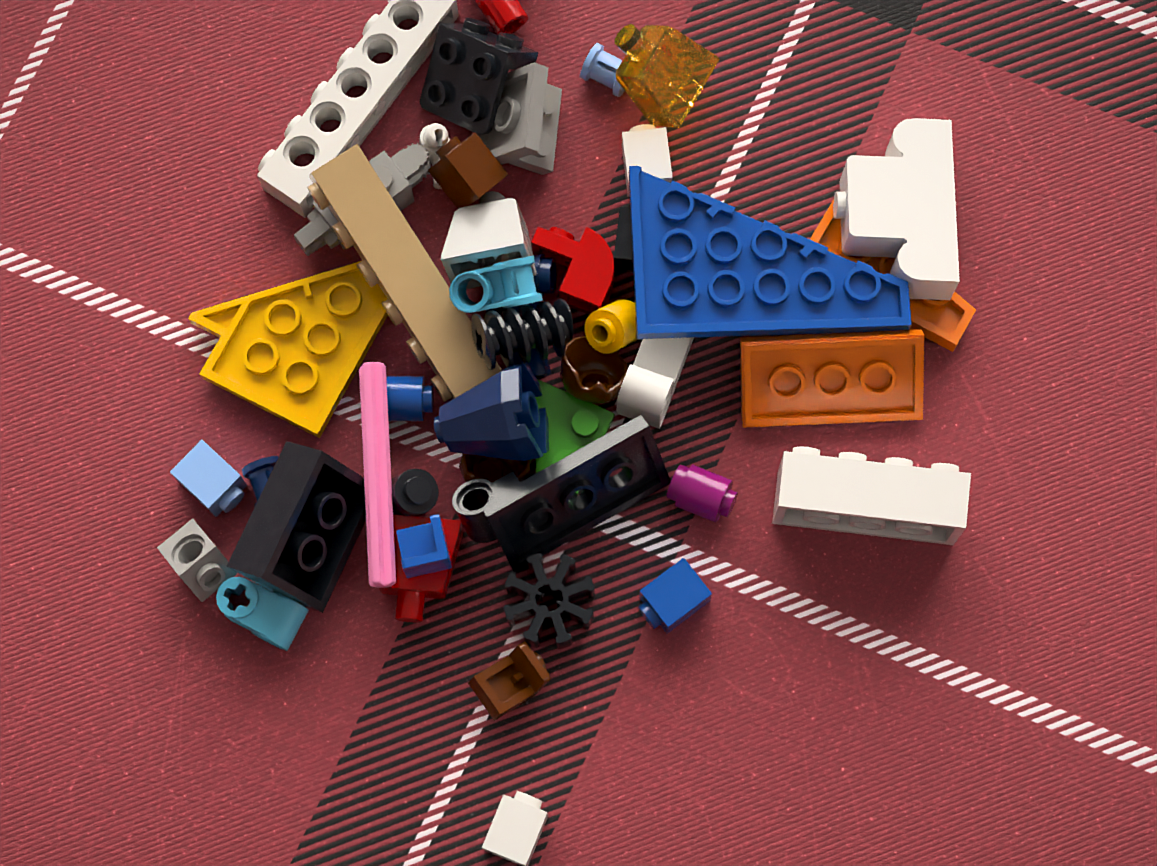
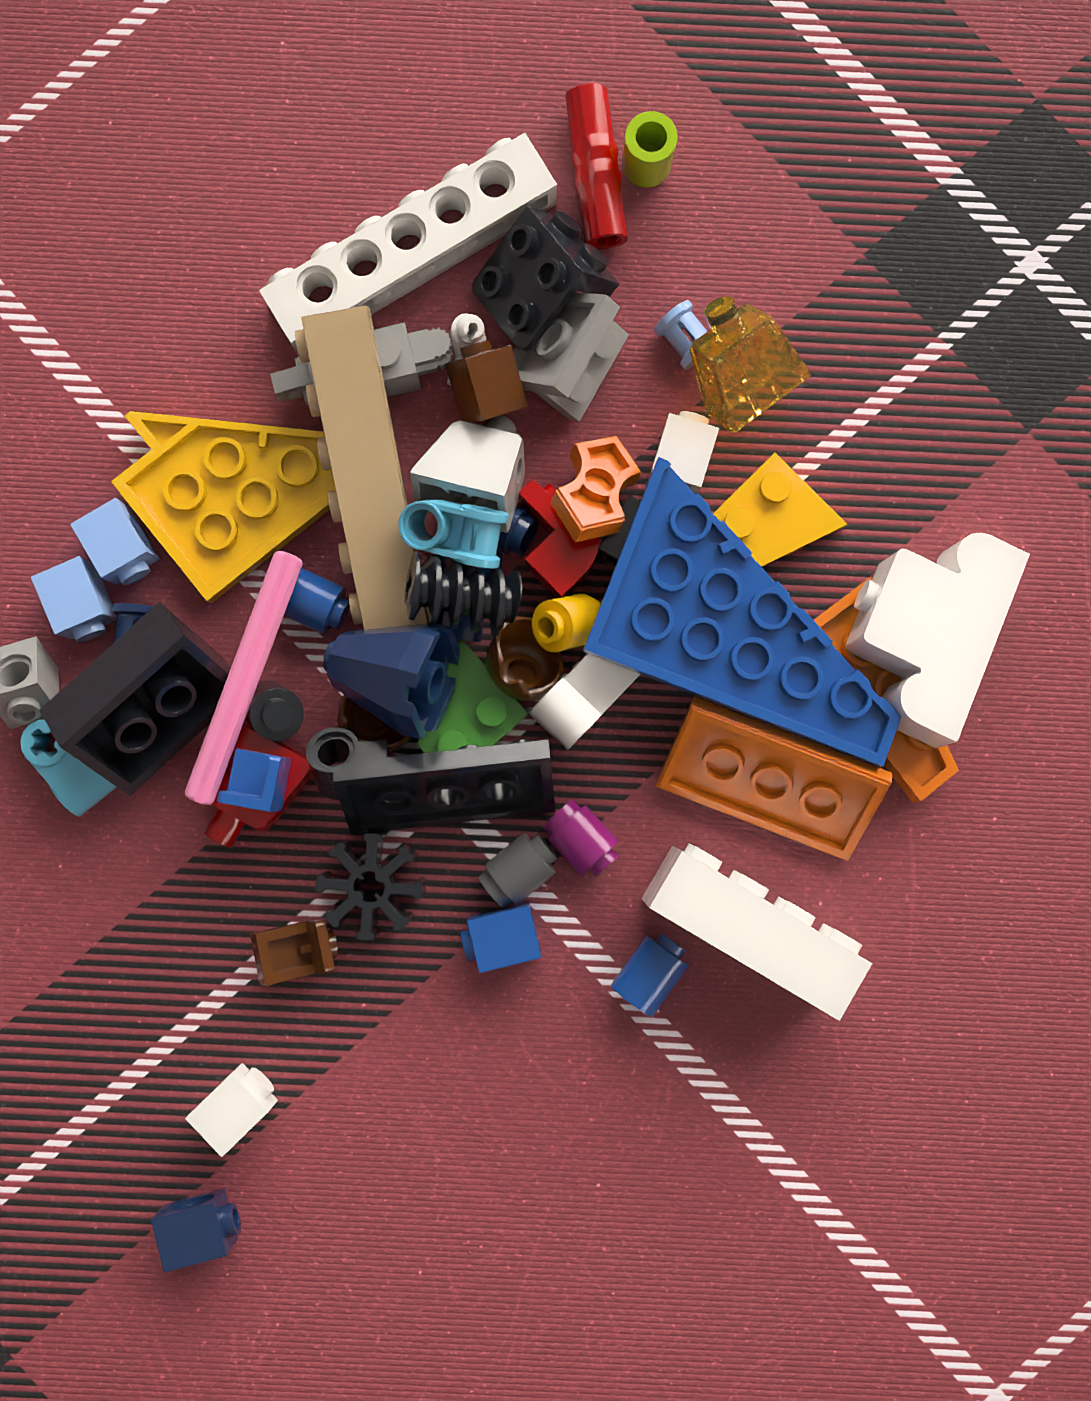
camera: 15 degrees right, 10 degrees up
(224, 420) = (116, 543): none -> light blue brick
(591, 220) = (591, 502): none -> orange tile
(663, 538) = (518, 870): none -> dark grey brick
(743, 173) = (777, 513): none -> yellow wing
(806, 573) = (651, 973): none -> blue brick

